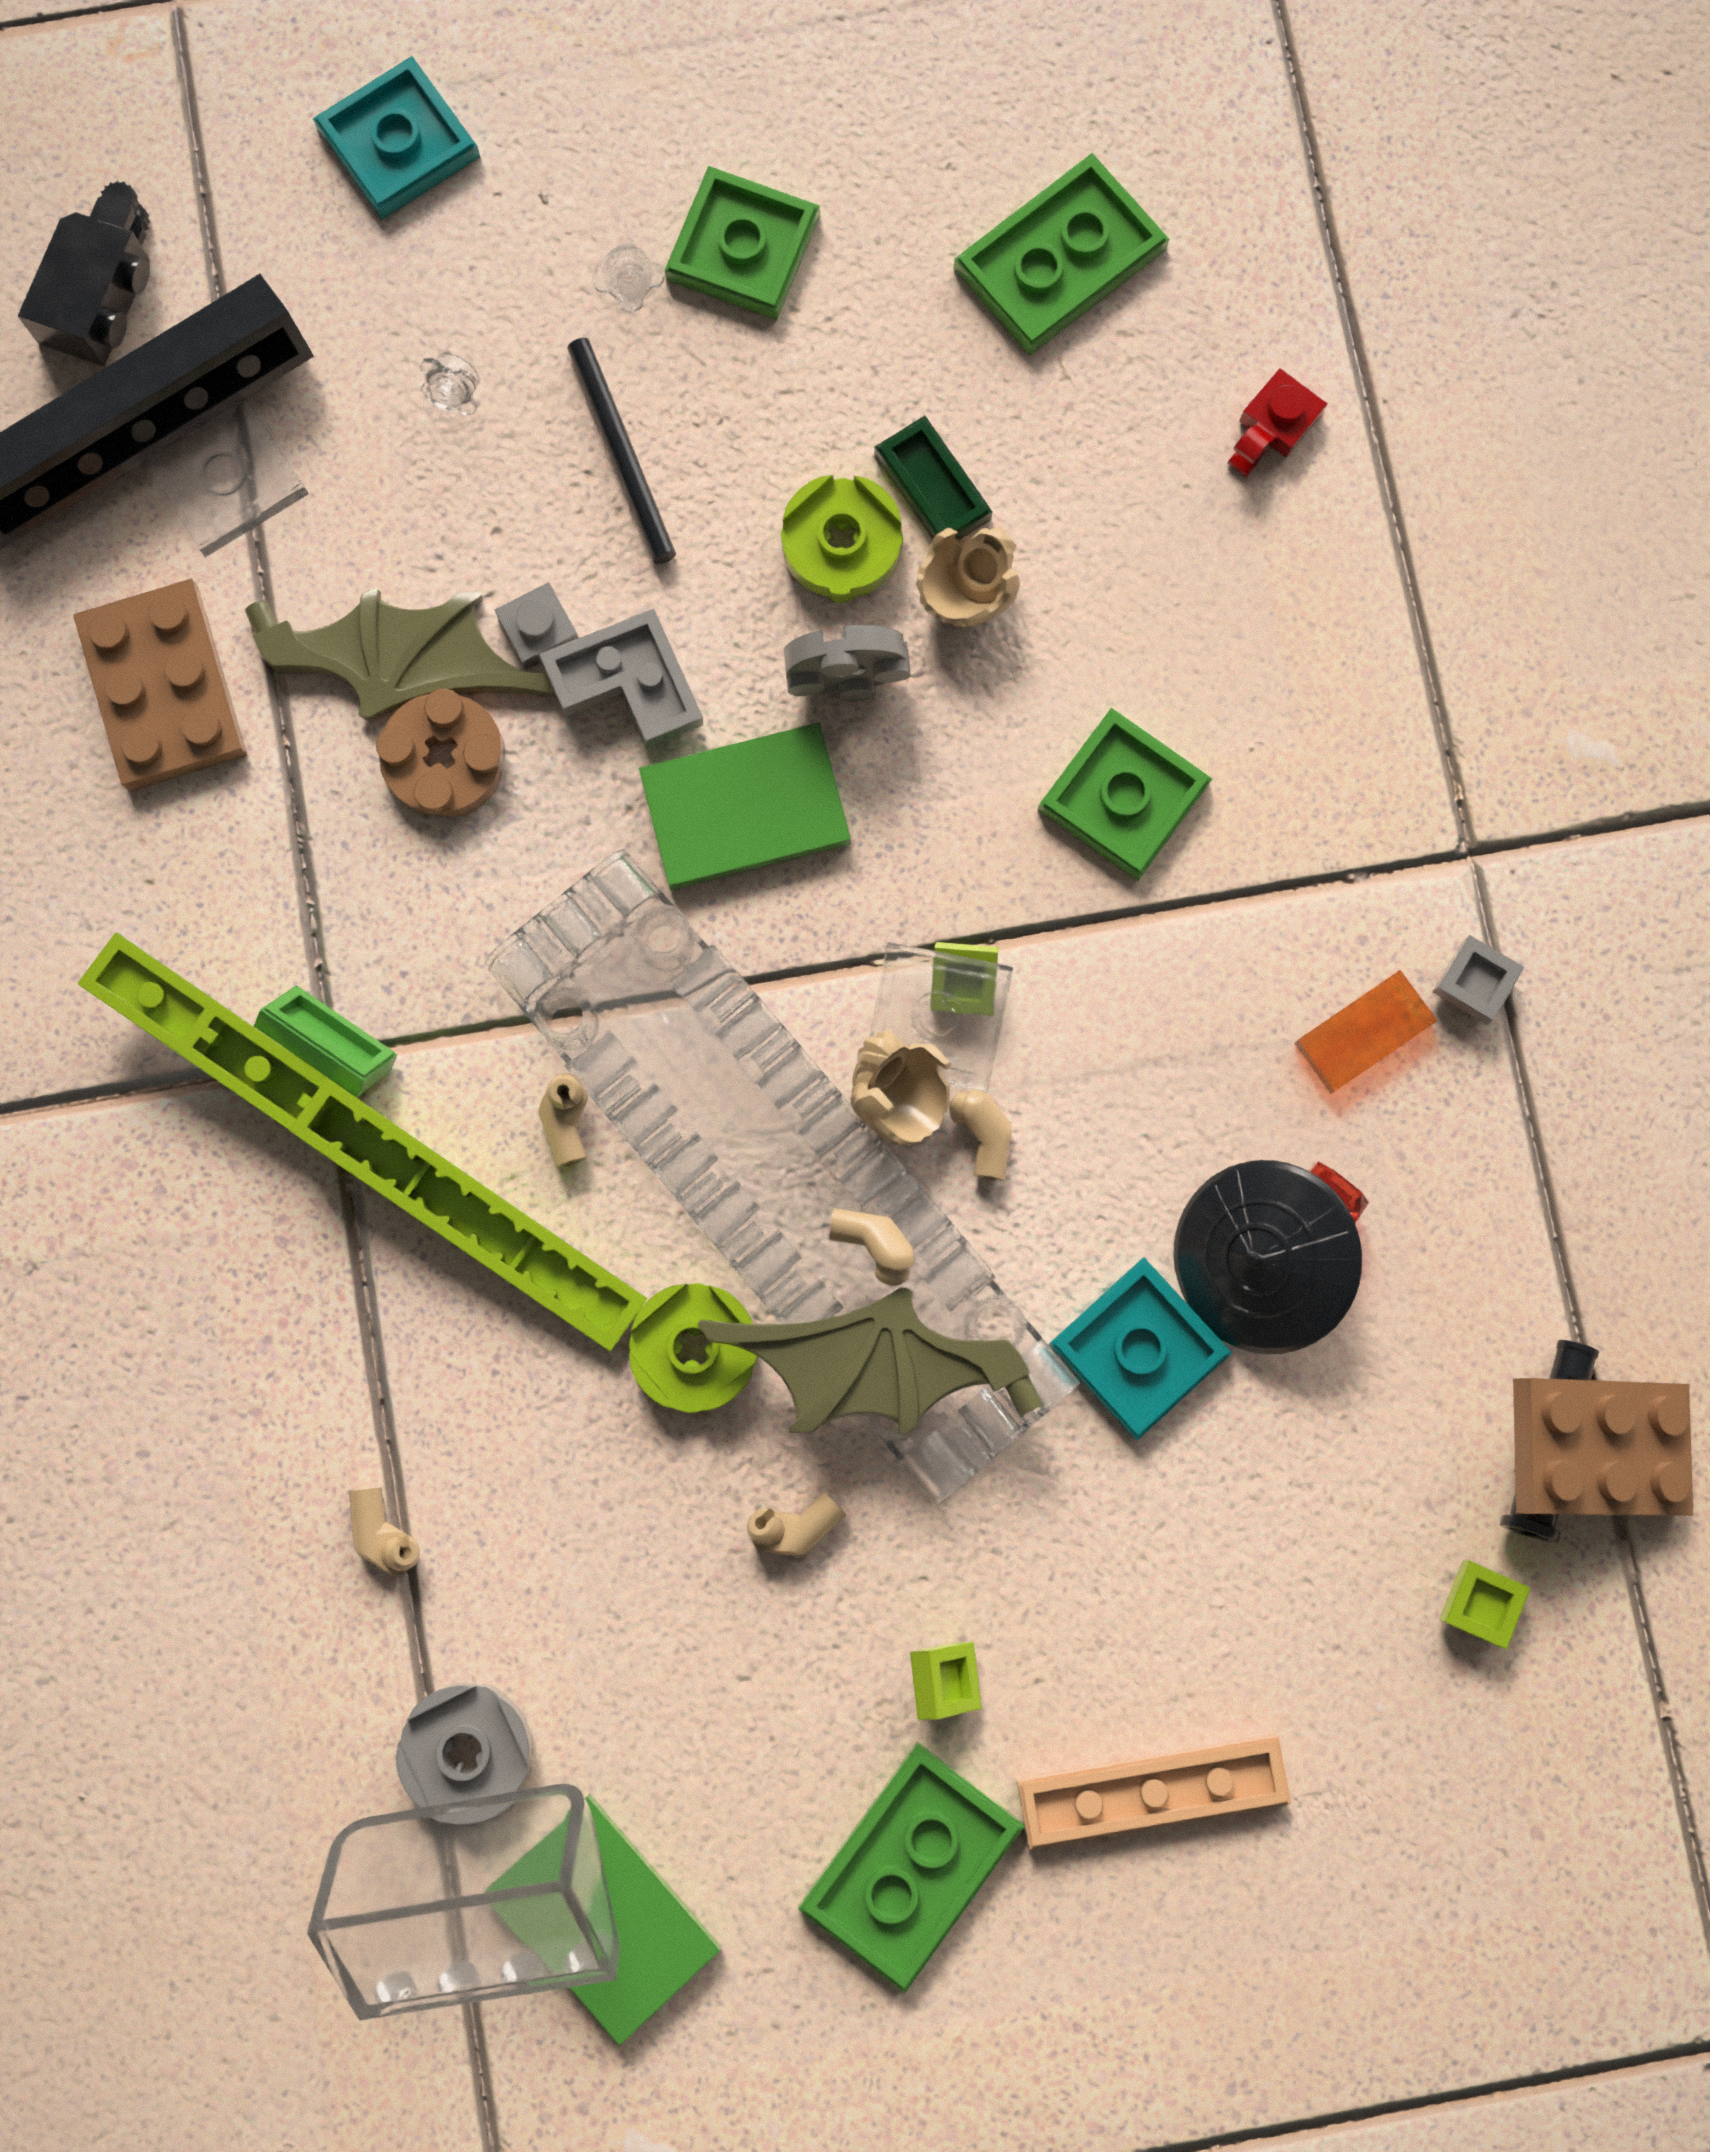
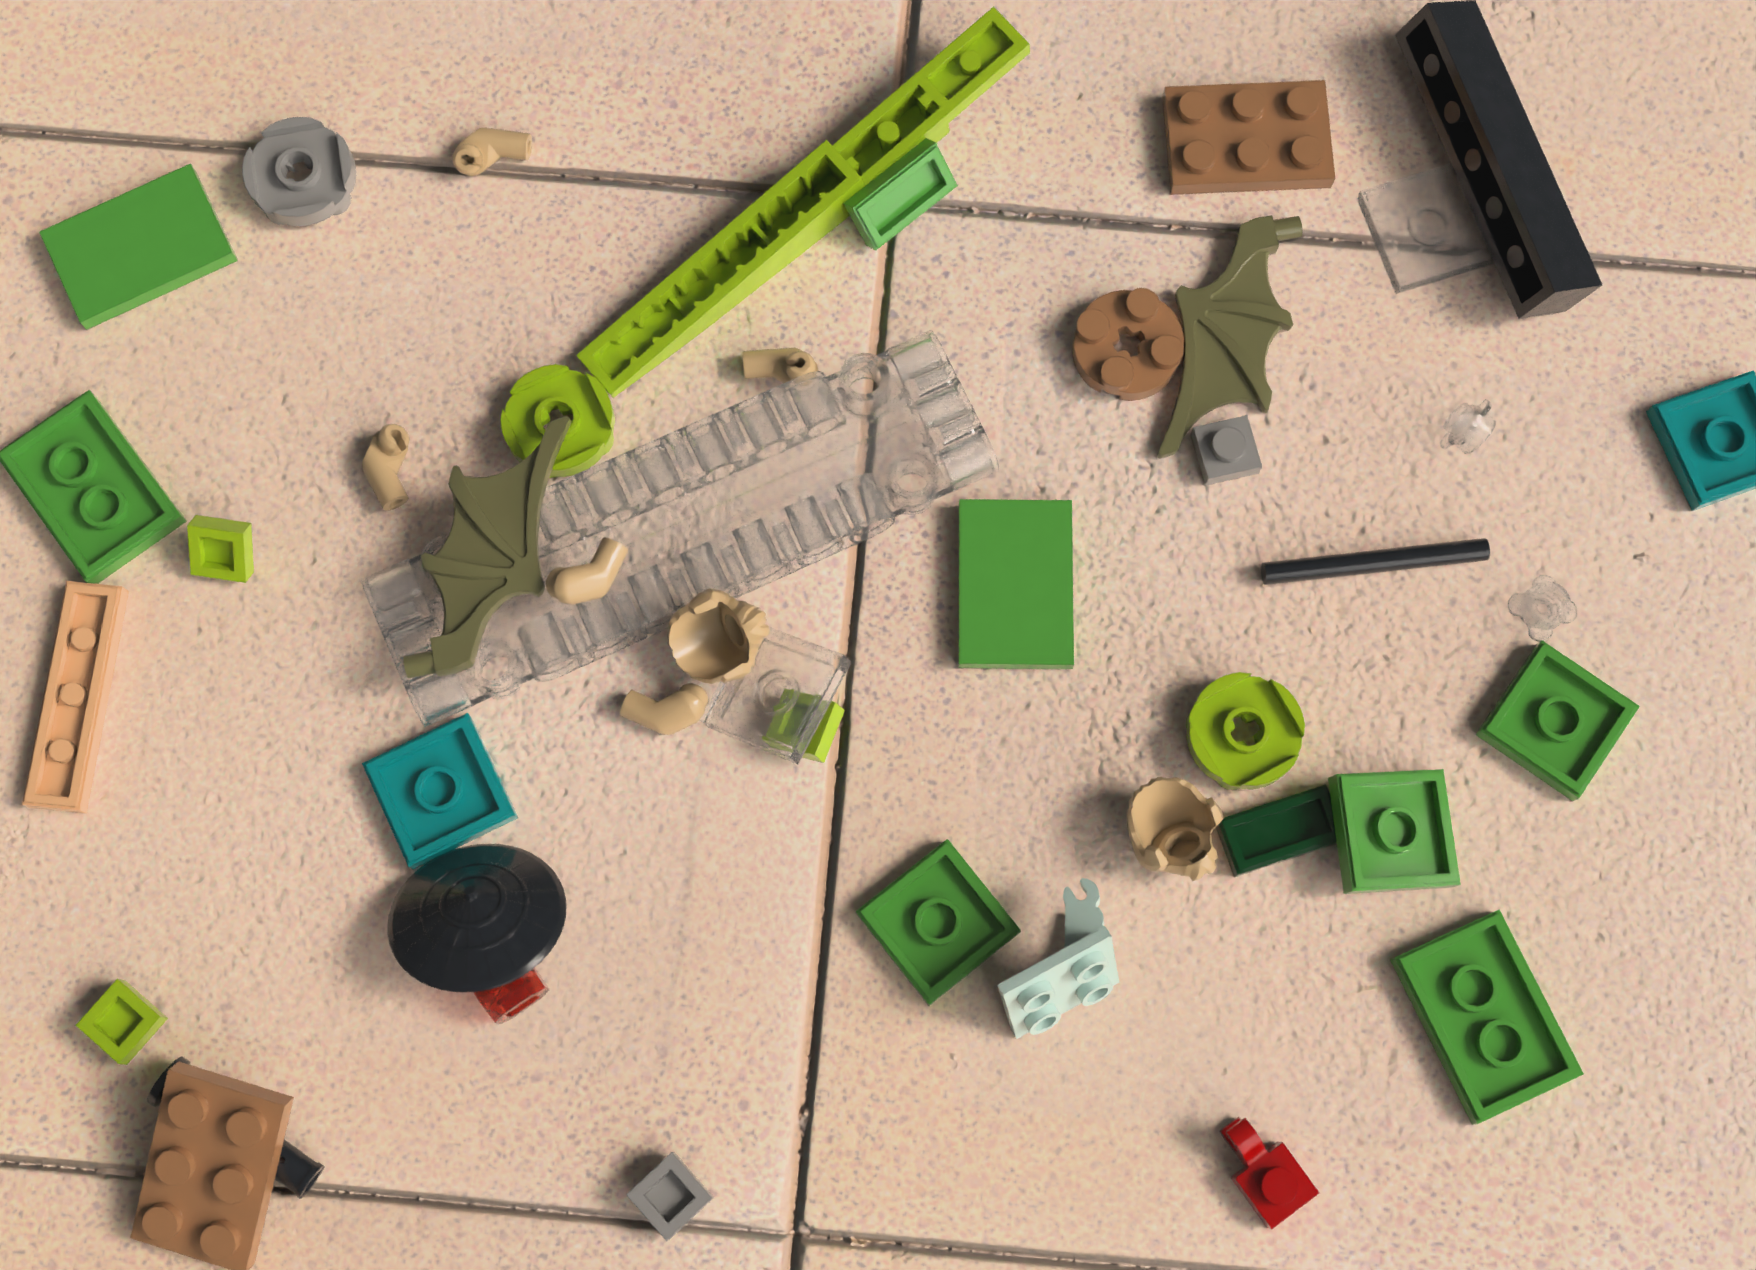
camera: 105 degrees right, 5 degrees down
(90, 277) = (1634, 155): black hinge -> none
(466, 1903) = (180, 137): clear windscreen -> none
(629, 661) = (1170, 518): light grey plate -> none
(848, 665) = (1115, 700): light grey plate -> none
(904, 371) = (1393, 831): none -> bright green tile
(1125, 628) = (1072, 976): none -> light aqua plate
(1365, 1031) = (655, 1078): clear orange tile -> none

